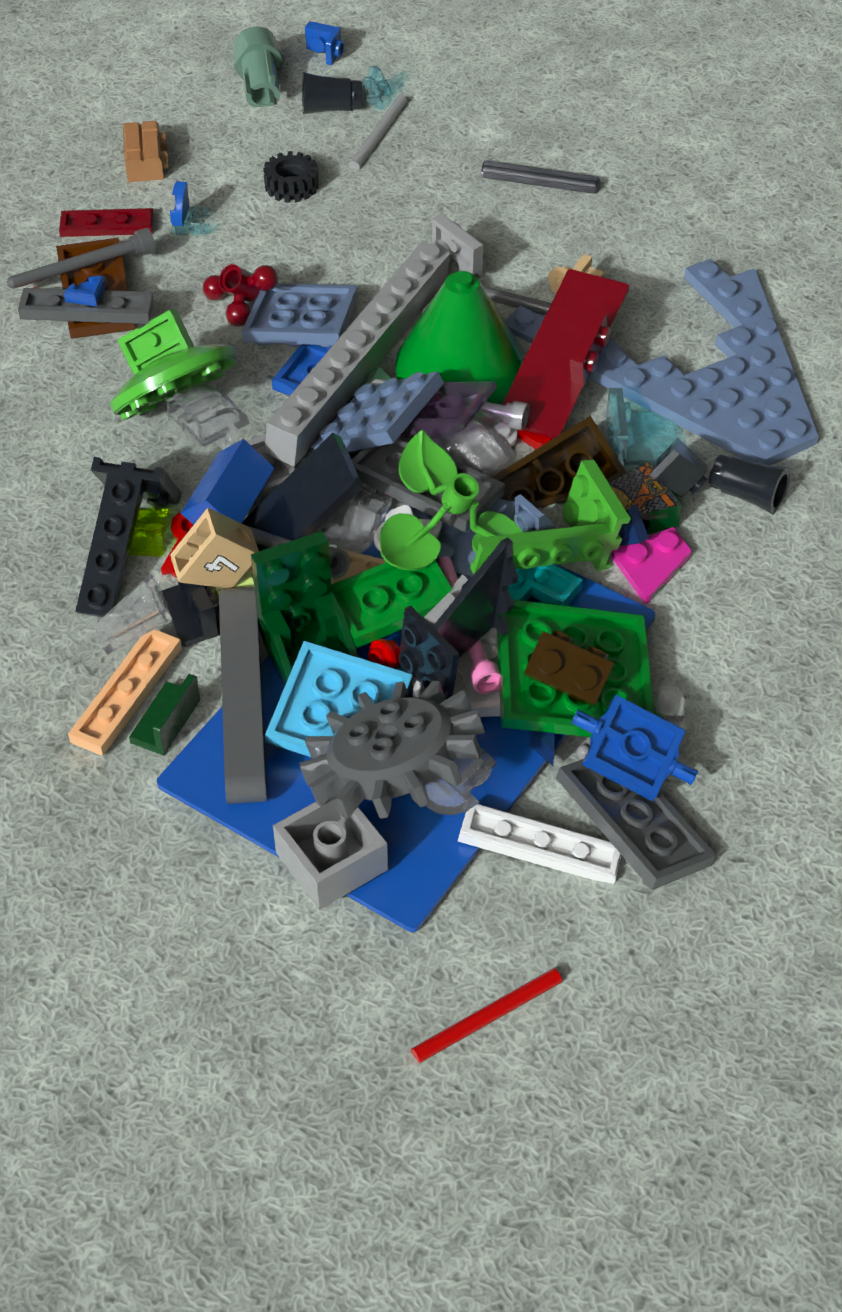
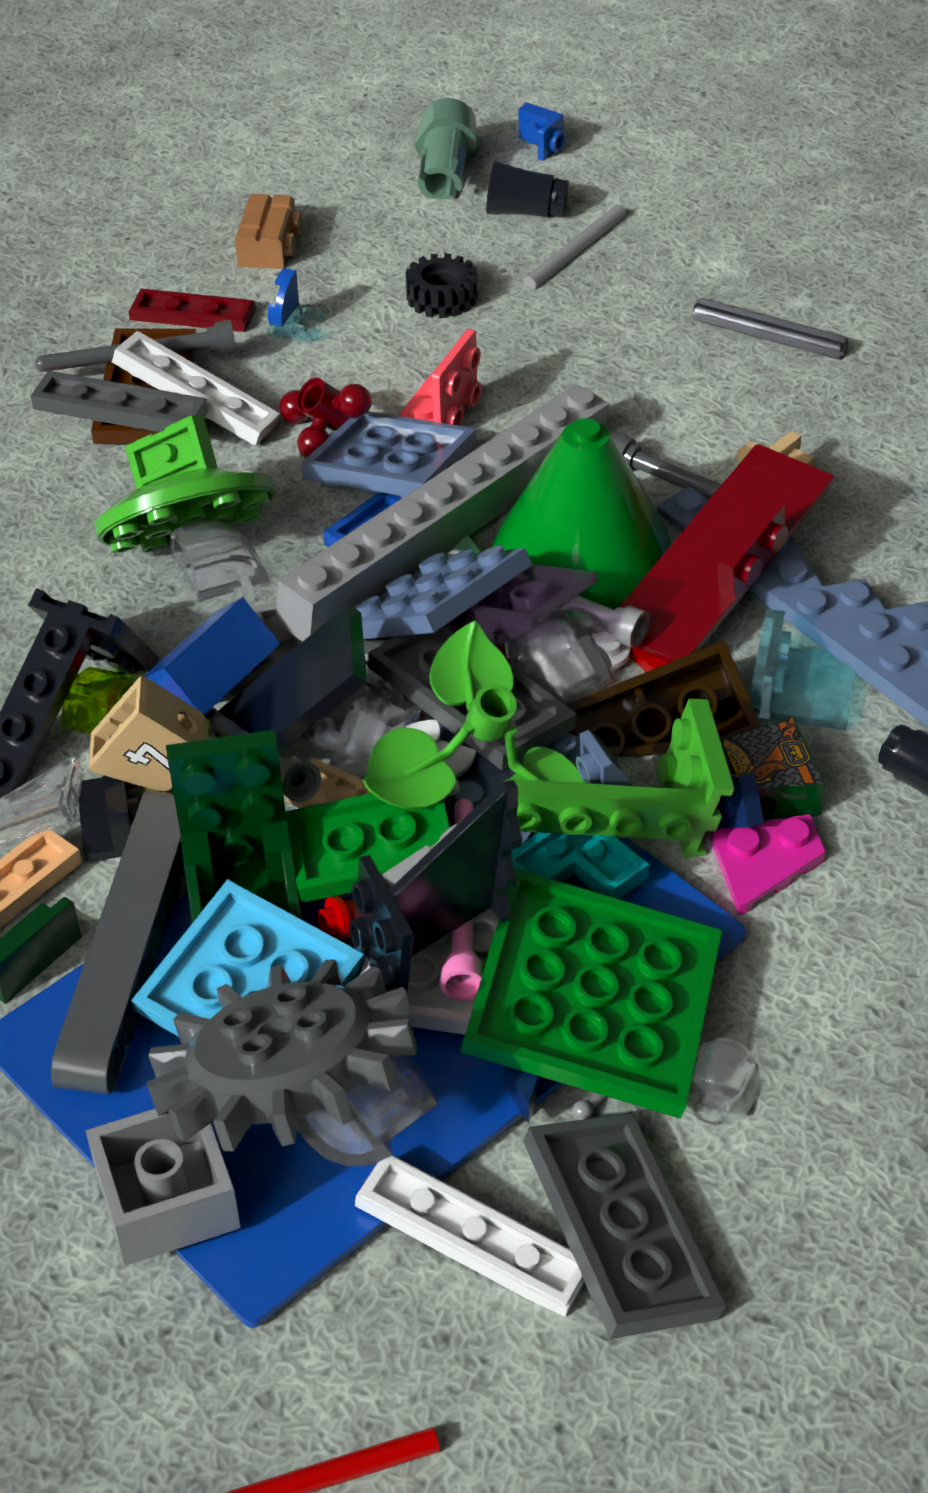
camera: 15 degrees right, 5 degrees down
(87, 292) = (121, 387): blue tile -> none
(124, 277) = (175, 374): none -> white plate
(323, 263) = (451, 385): none -> coral bracket
(373, 85) = (583, 188): clear light blue piece -> none
(463, 247) = (626, 397): light grey plate -> none
(569, 667) = (578, 984): dark brown bracket -> none
(634, 747) = (642, 1119): blue plate -> none
(679, 469) = (835, 734): black slope -> none

